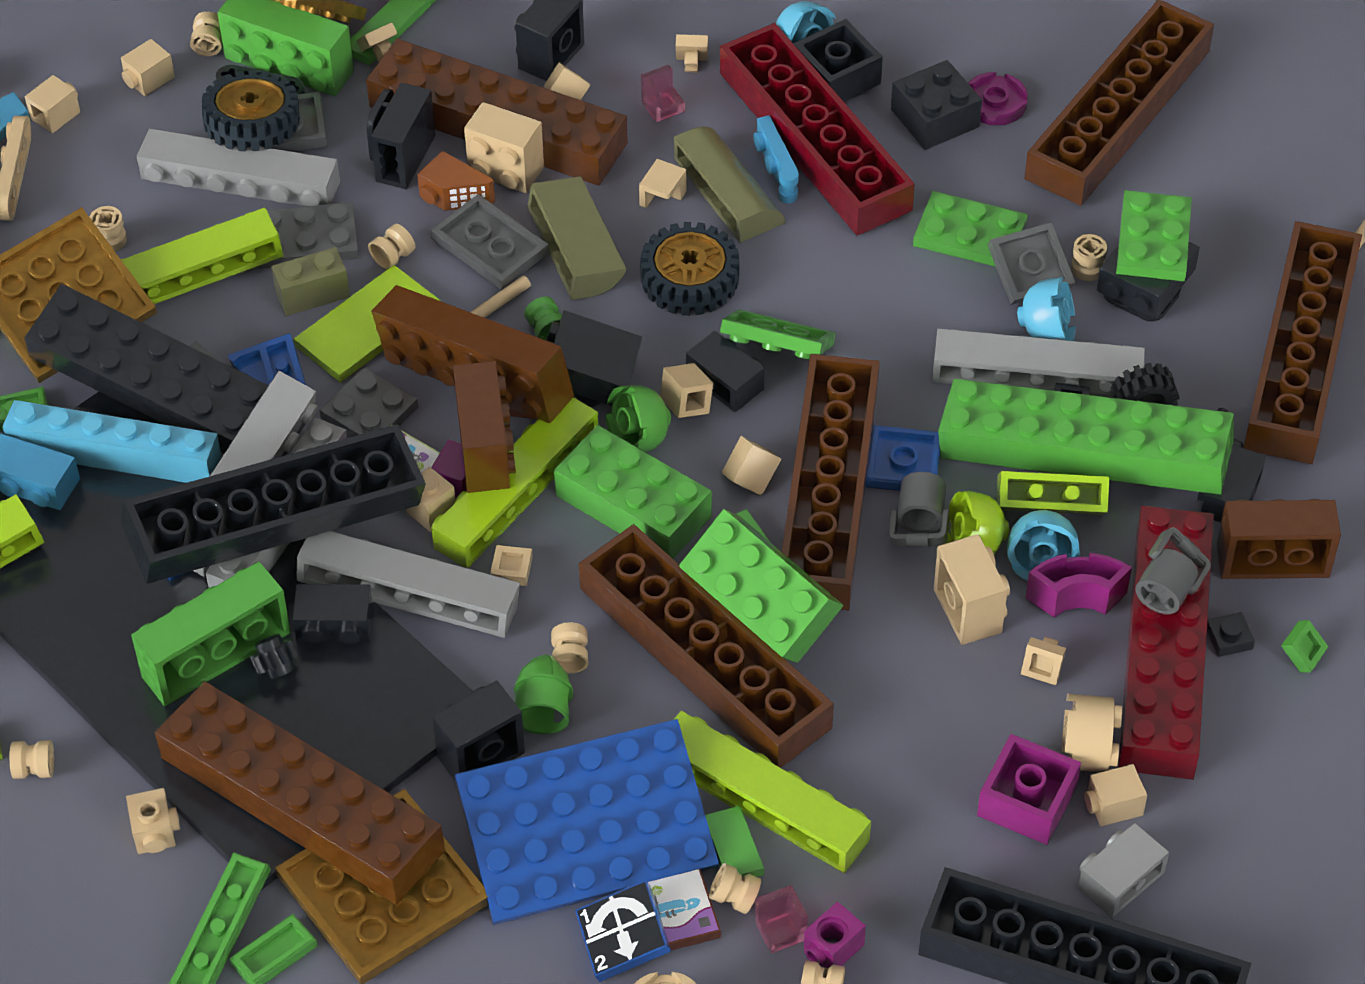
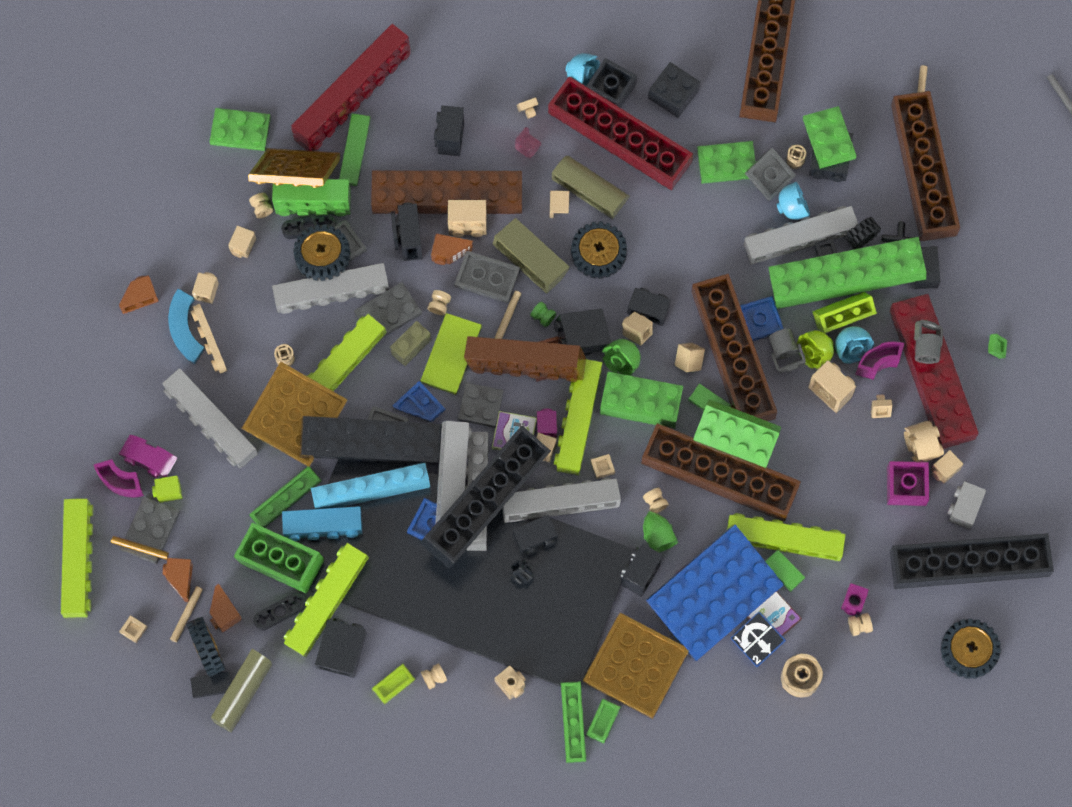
camera: 25 degrees left, 20 degrees up
(210, 633) = (487, 574): bright green brick -> none
(301, 792) = (575, 639): reddish brown brick -> none
(378, 40) = (359, 173): tan tile -> none
(482, 426) = (558, 402): reddish brown brick -> none
(567, 82) = (473, 159): tan panel -> none
(734, 888) = (798, 595): tan wheel -> none
(777, 159) = (608, 160): dark azure plate -> none
(777, 333) = (666, 273): bright green plate -> none
(780, 918) = (827, 601): clear pink panel -> none
(1002, 98) = (702, 67): magenta tile -> none
(1230, 634) = (959, 352): black plate -> none
(1278, 539) = (963, 293): reddish brown brick -> none

